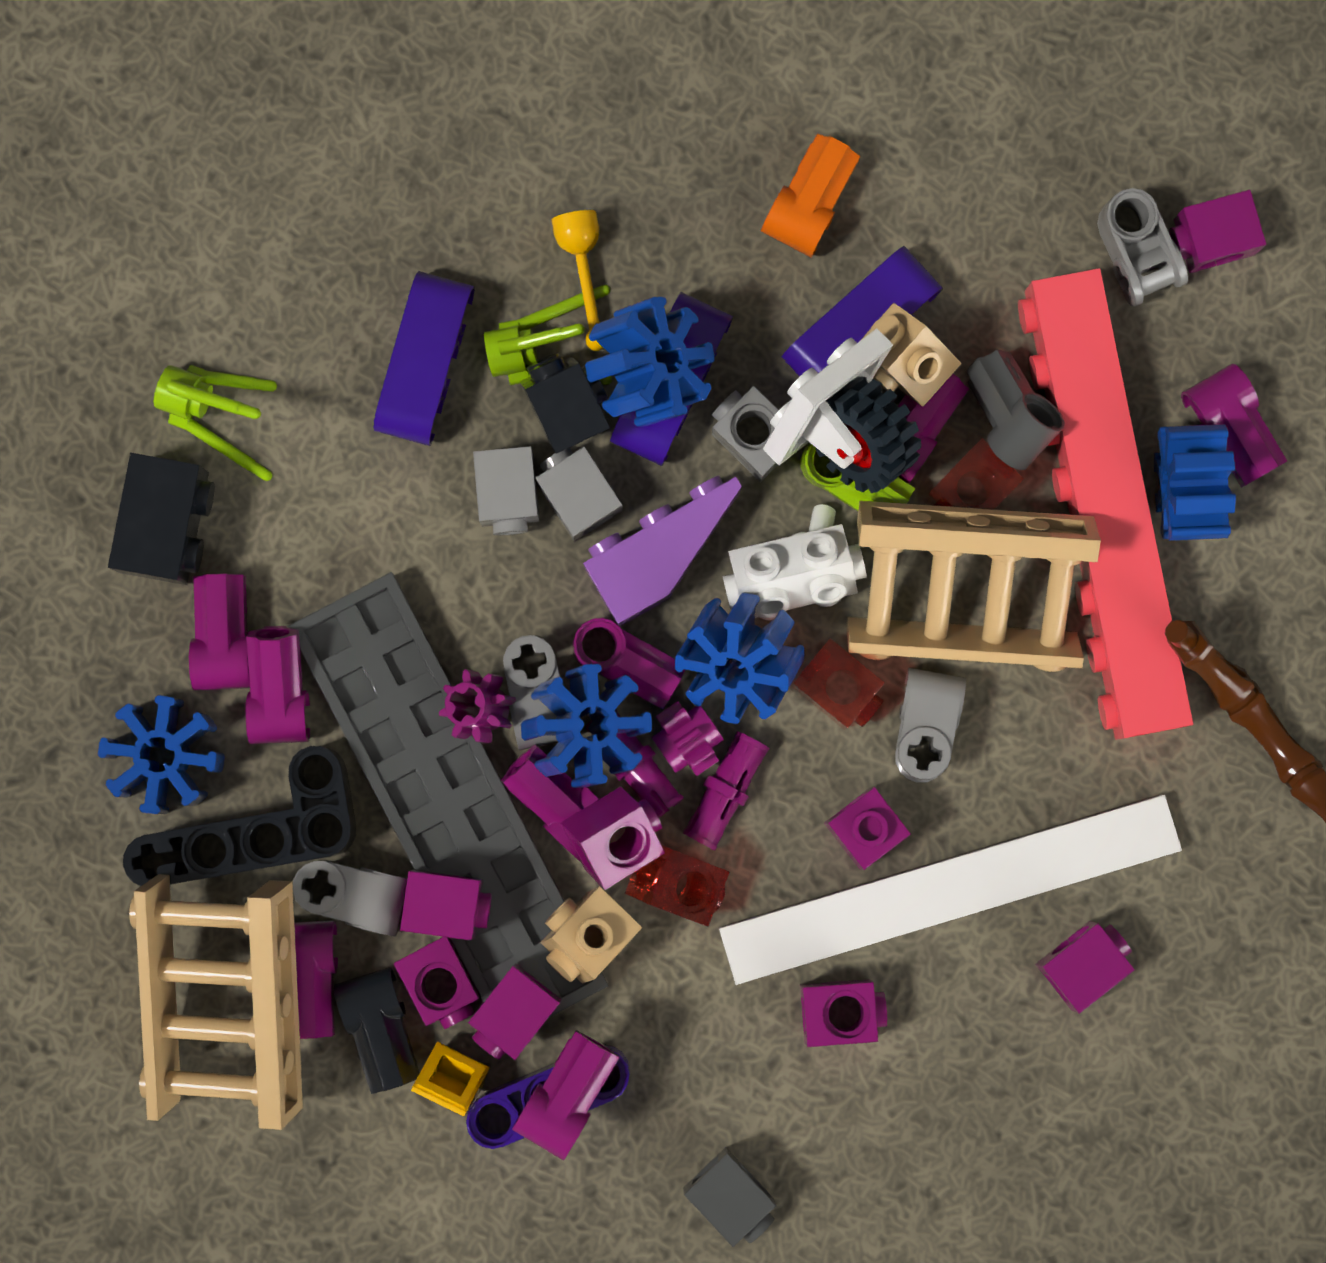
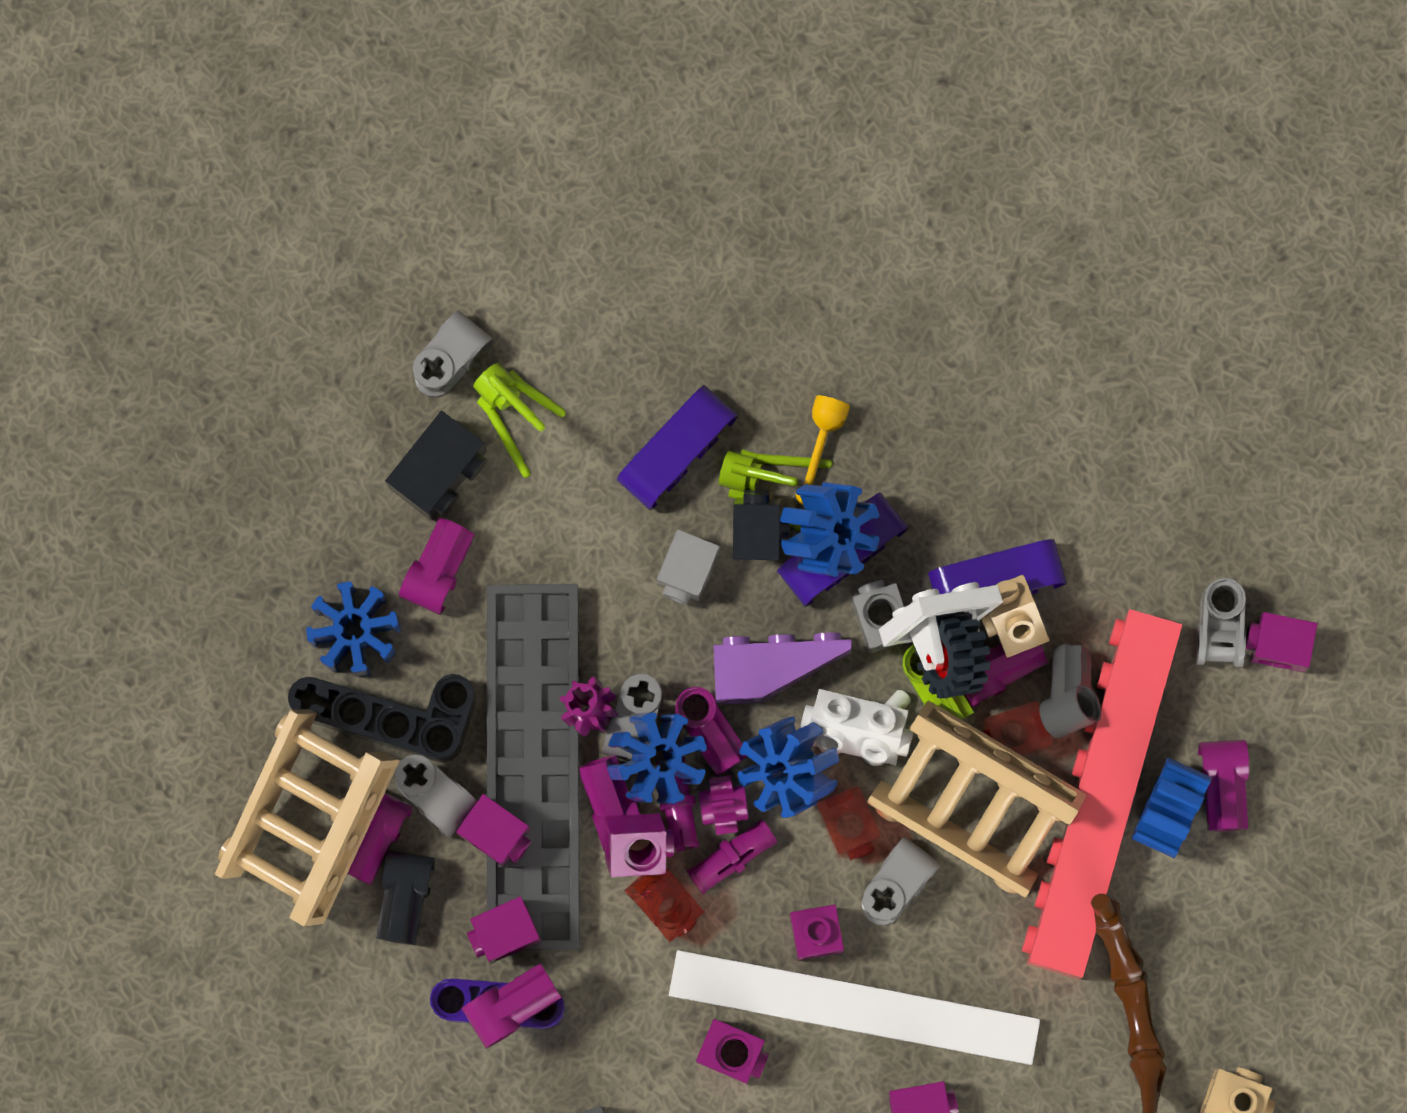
camera: 35 degrees right, 5 degrees down
(111, 375) = (454, 350): none -> light grey piece
(276, 689) = (457, 621): magenta piece -> none
(414, 970) = (456, 865): magenta brick -> none
(451, 1079) = (437, 955): yellow slope -> none
(577, 491) = (736, 594): light grey brick -> none
(587, 935) = (582, 903): tan brick -> none
(807, 204) = (1002, 475): orange piece -> none

